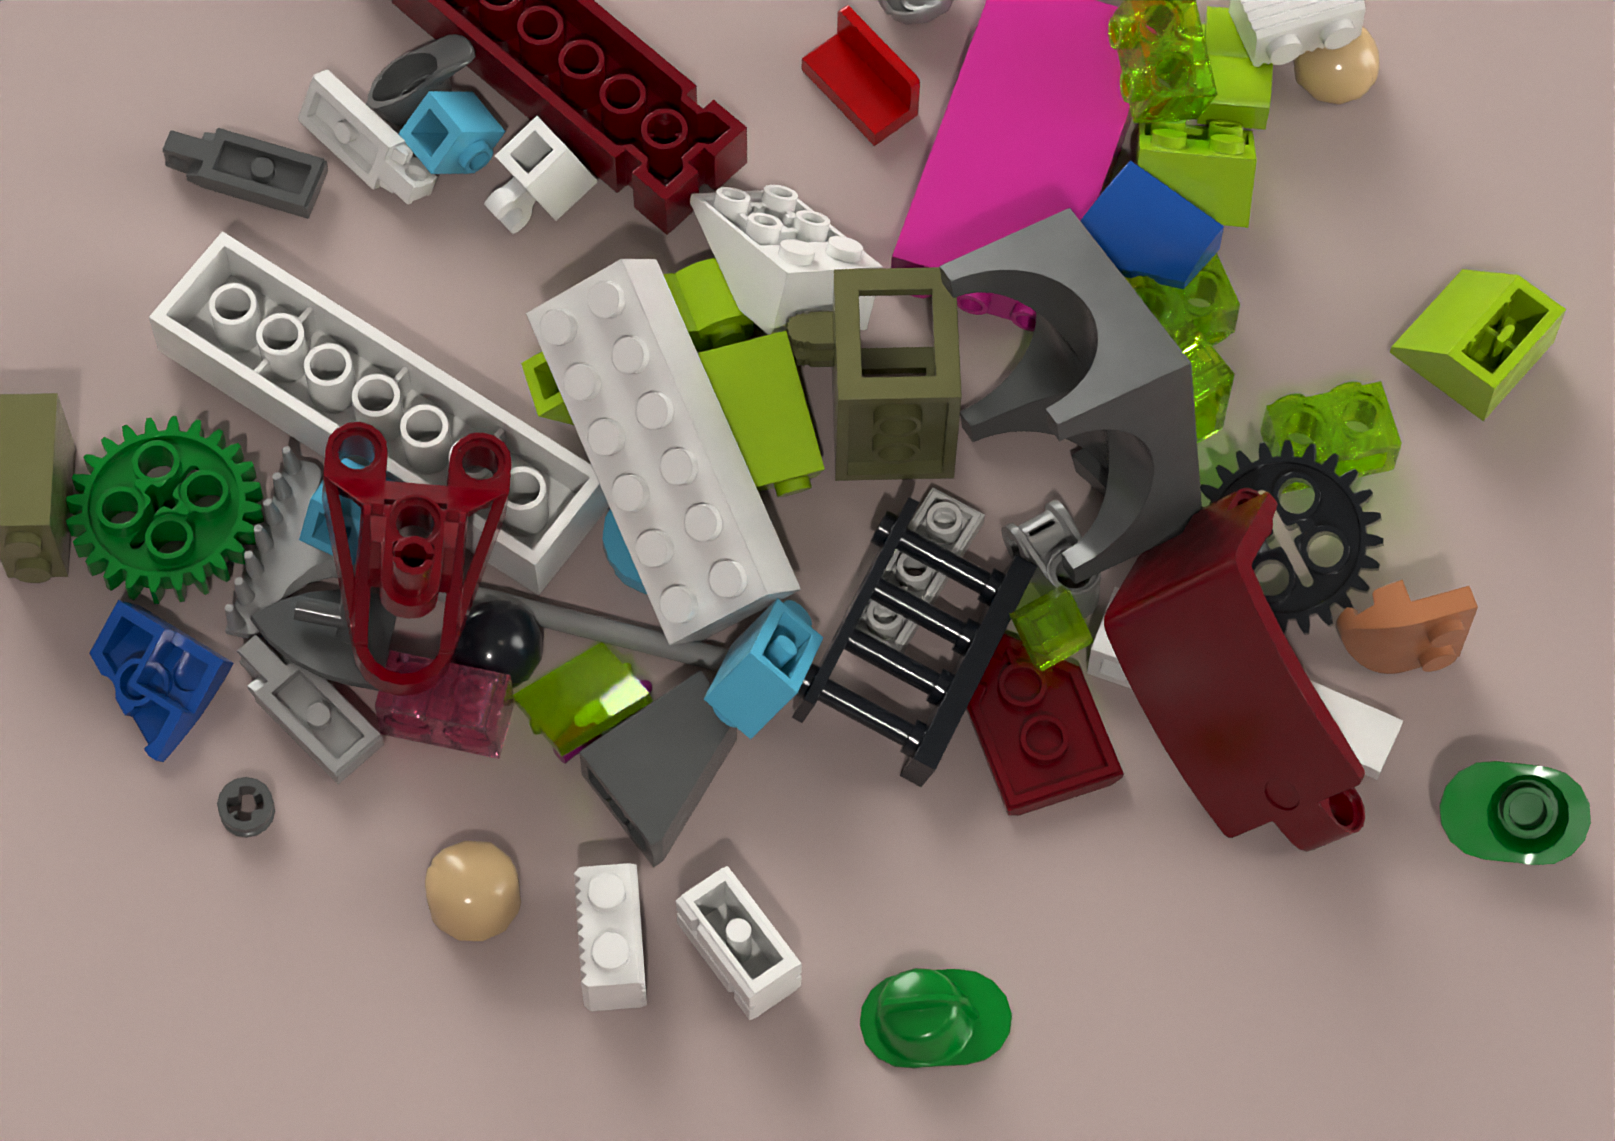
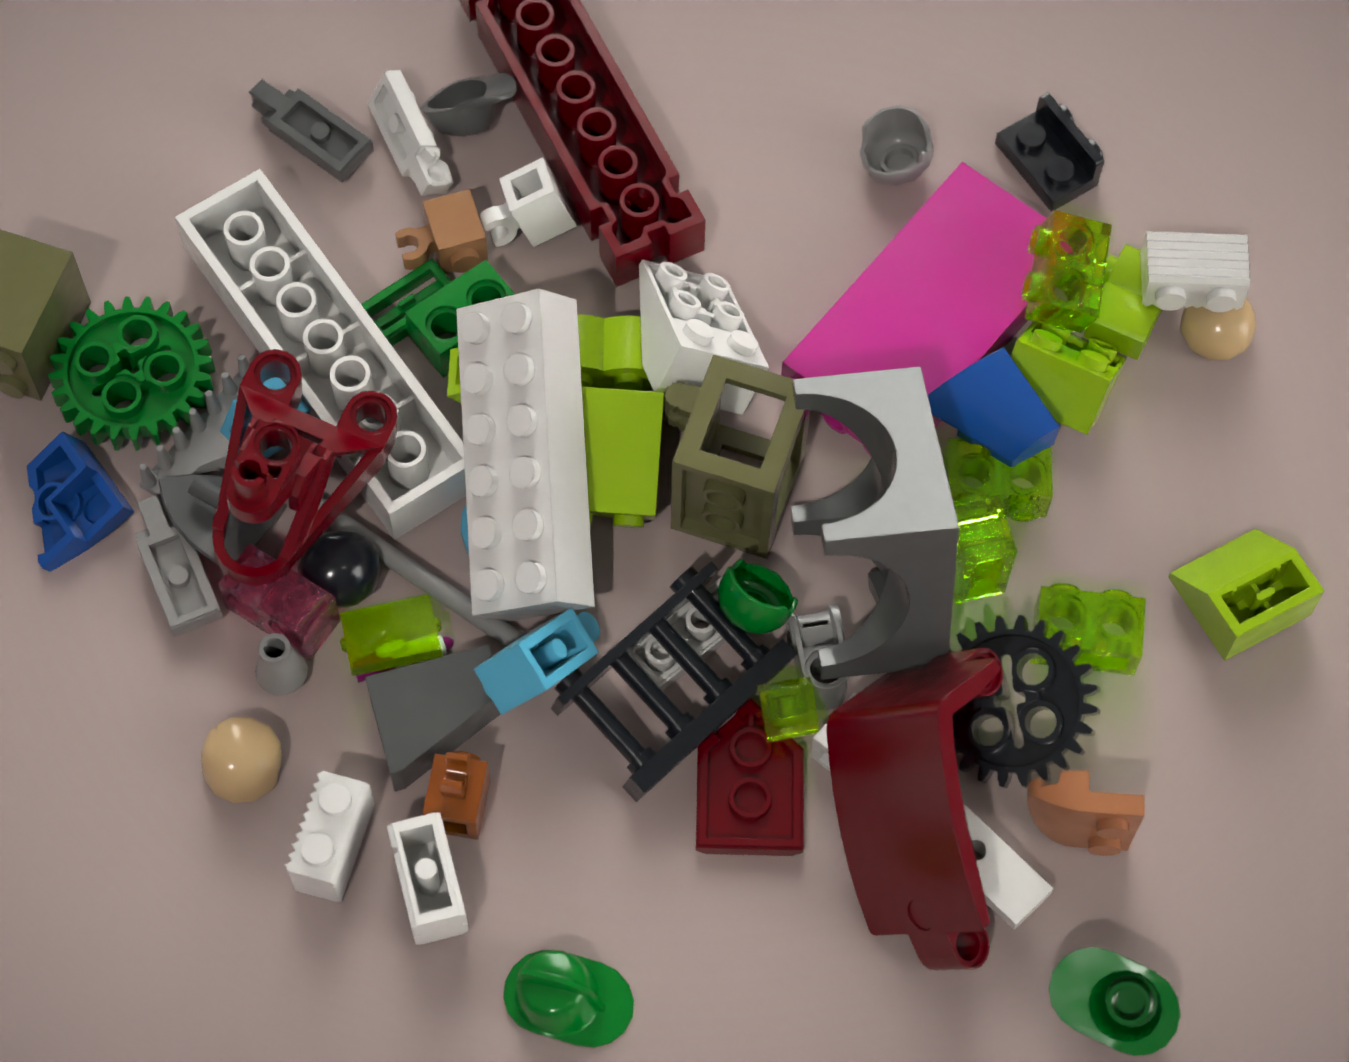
camera: 20 degrees right, 0 degrees up
(232, 796) = (89, 616): dark grey bush -> none
(452, 133) = (476, 150): medium azure brick -> none
(457, 233) = (449, 231): none -> medium nougat brick
(466, 333) = (387, 323): none -> green tile
(474, 774) = (279, 665): none -> light grey cone
(502, 321) = (439, 314): none -> green brick
(730, 836) = (459, 792): none -> dark orange brick
(864, 78) = (823, 214): red panel -> none
(970, 521) = (755, 598): none -> green hair

